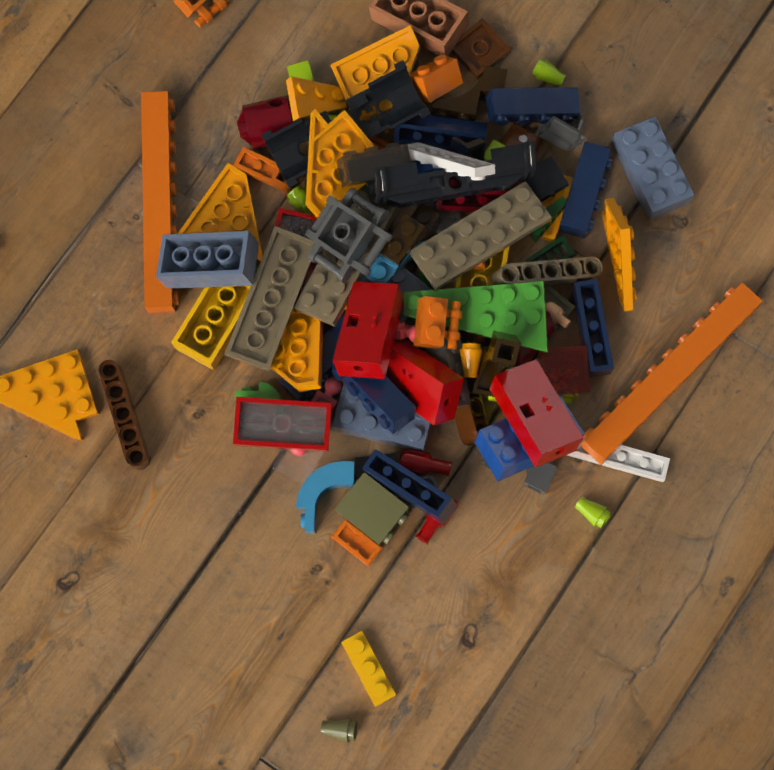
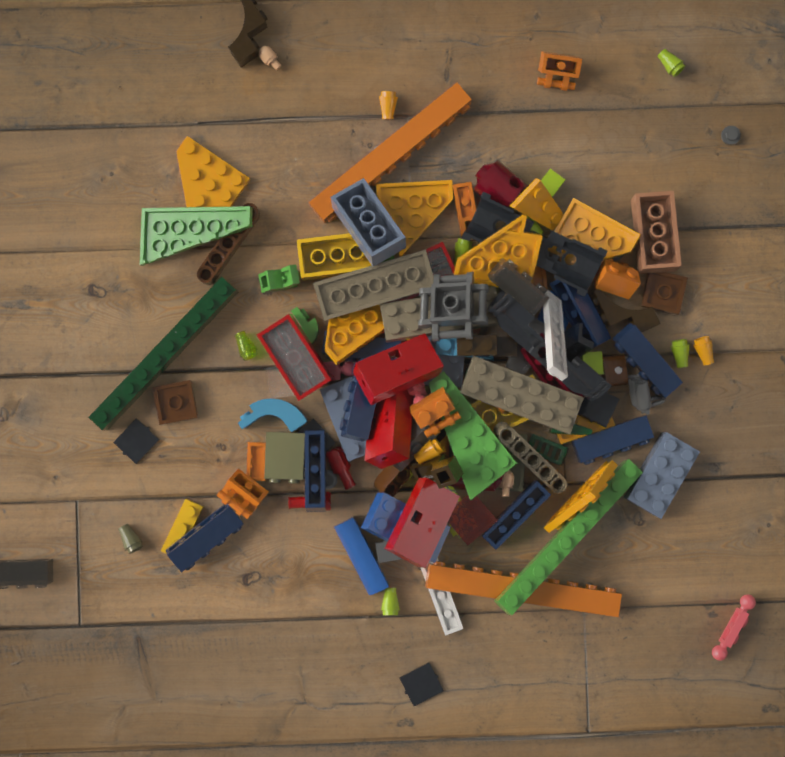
camera: 50 degrees right, 10 degrees up
(72, 451) = (183, 228): none -> bright green wing
(111, 170) = (388, 104): none -> light orange cone
(181, 557) = (163, 354): none -> dark green brick
(197, 389) = (279, 279): none -> bright green brick
(237, 471) = (246, 348): none -> clear neon green cone
(237, 581) = (175, 402): none -> reddish brown plate
(246, 650) = (136, 441): none -> black piece
(378, 577) = (242, 494): none -> orange brick
(394, 648) = (204, 537): none -> dark blue brick
(526, 507) = (361, 556): none -> blue brick
(561, 50) = (704, 349): none -> light orange cone
(652, 299) = (565, 540): none -> bright green brick
(697, 541) = (421, 684): none -> black piece

